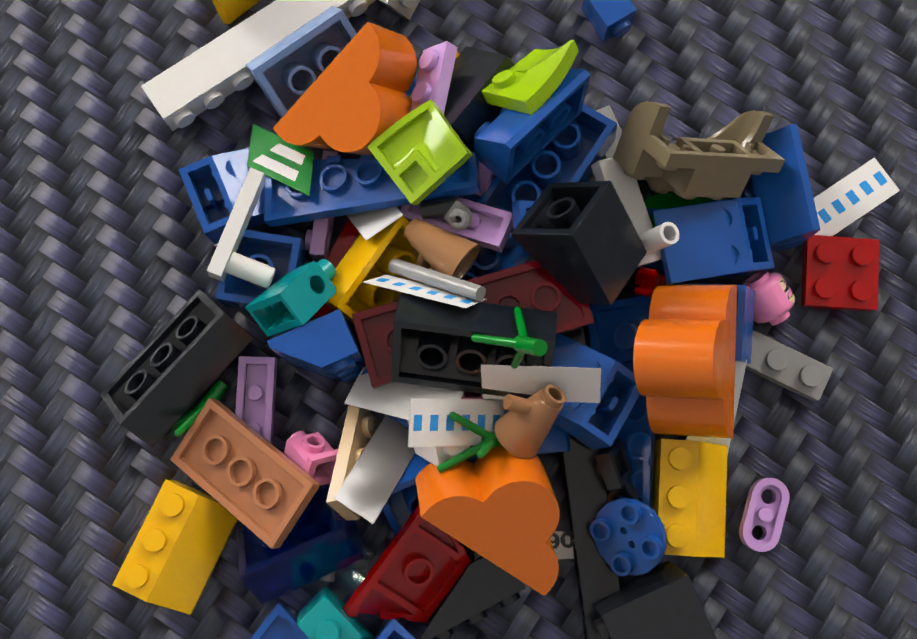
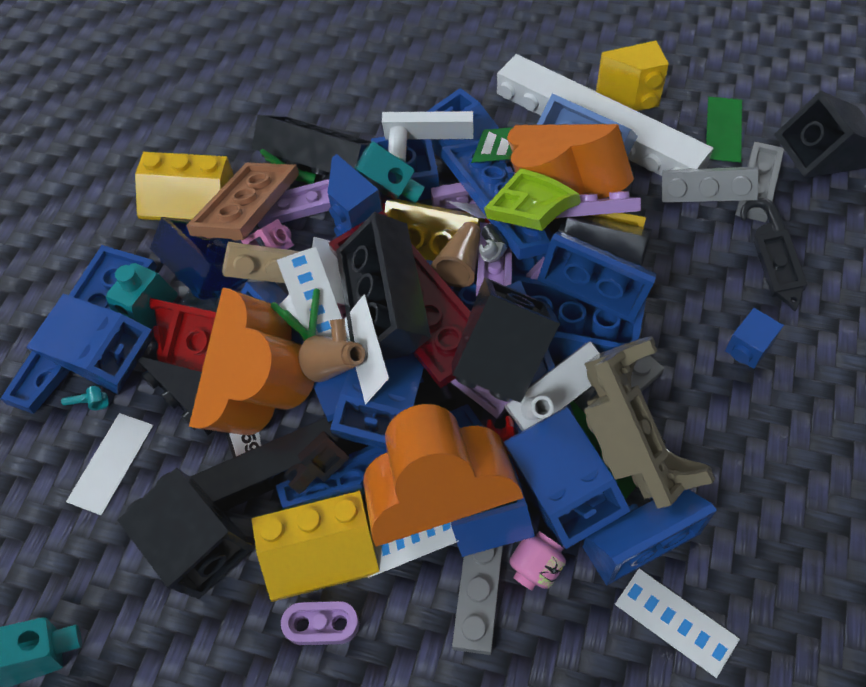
camera: 75 degrees right, 20 degrees down
(377, 470) = (253, 271): light grey sticker -> none
(422, 290) = (415, 243): white sticker -> none
(437, 279) = (430, 252): light grey bar -> none
(521, 343) = (380, 294): green plant -> none
(532, 79) = (619, 246): lime plate -> none
(629, 536) = (259, 484): blue plate -> none
(840, 273) = (595, 634): red plate -> none

